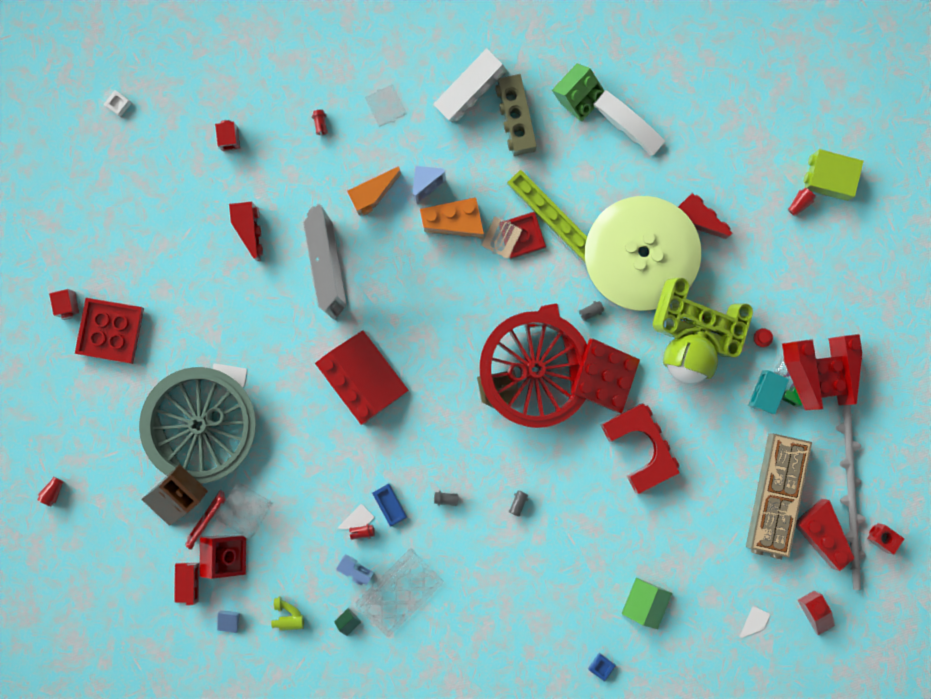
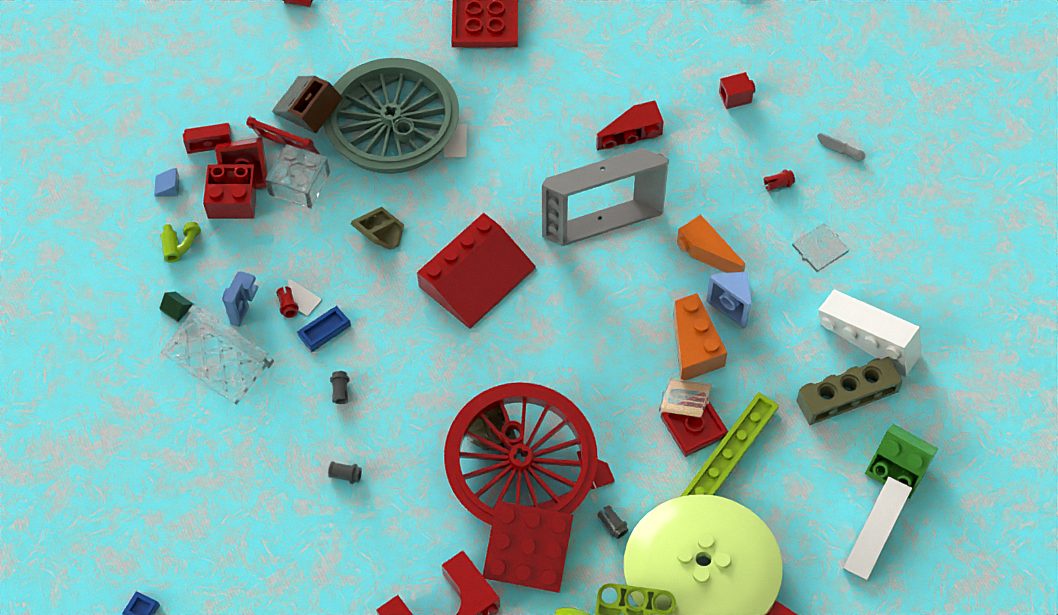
camera: 80 degrees right, 25 degrees down
(249, 568) = (230, 191): none -> red slope
(294, 69) = (839, 146): none -> light grey piece
(307, 449) = (380, 228): none -> olive slope

